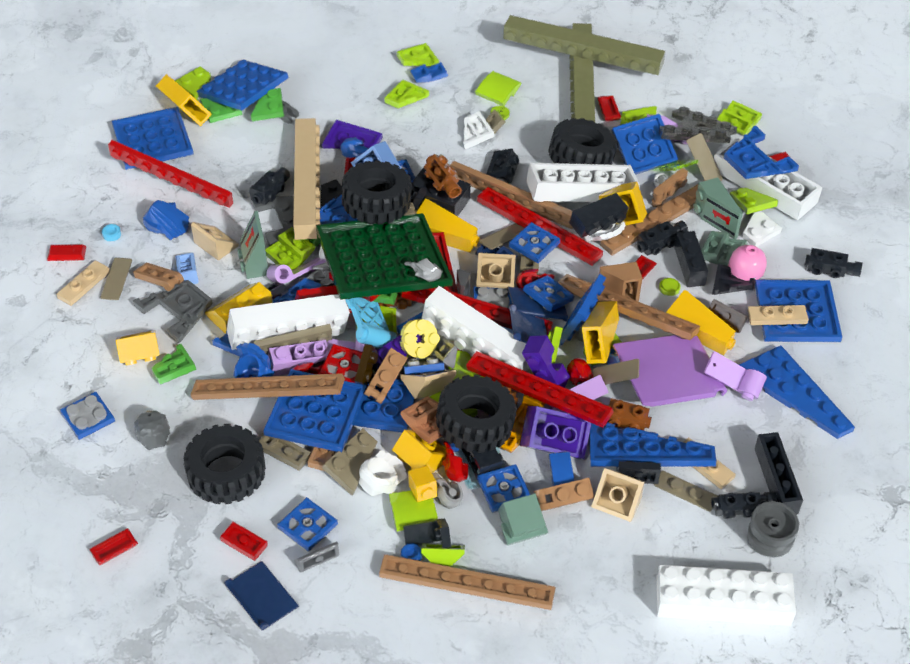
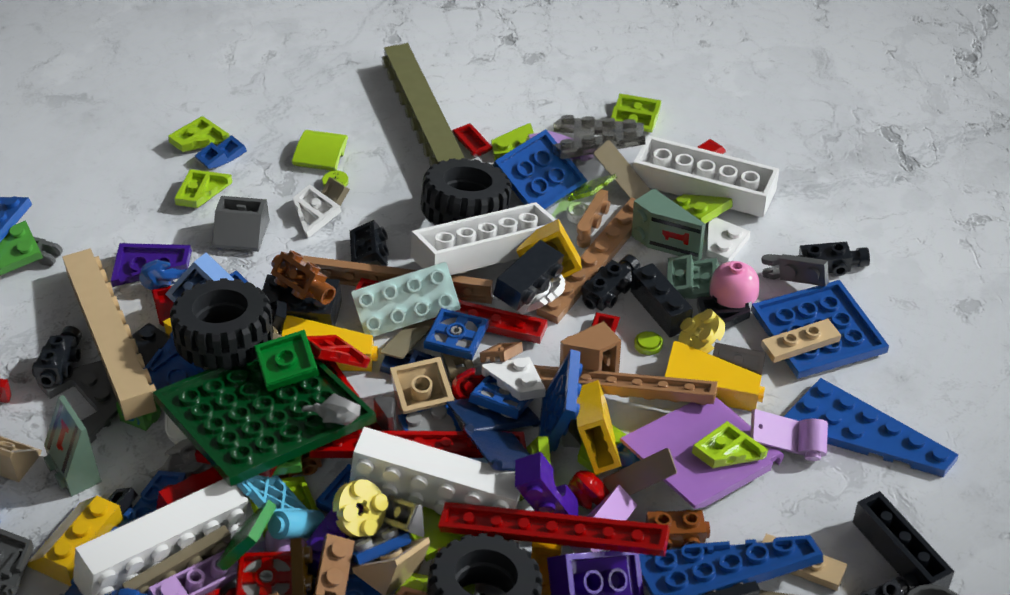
camera: 20 degrees left, 5 degrees down
(283, 273) = (127, 473): lavender door -> none
(289, 251) = (121, 441): lime slope -> none
(340, 334) = (246, 535): none -> green tile
(408, 228) = (286, 360): none -> green tile
(421, 126) = (240, 223): none -> dark grey slope
(446, 230) = (337, 350): none -> red wing
(509, 209) = (405, 299): none -> light aqua bracket
(560, 263) = (501, 352): none -> medium nougat tile
(561, 283) = (517, 377): none -> white wing
(584, 45) = (410, 69): olive brick -> none
(685, 371) = (728, 447): none -> lime wing
(708, 288) = (702, 330): none -> light yellow plate
(752, 161) = (684, 158): blue wing -> none
(800, 264) = (796, 269): none -> dark grey hinge

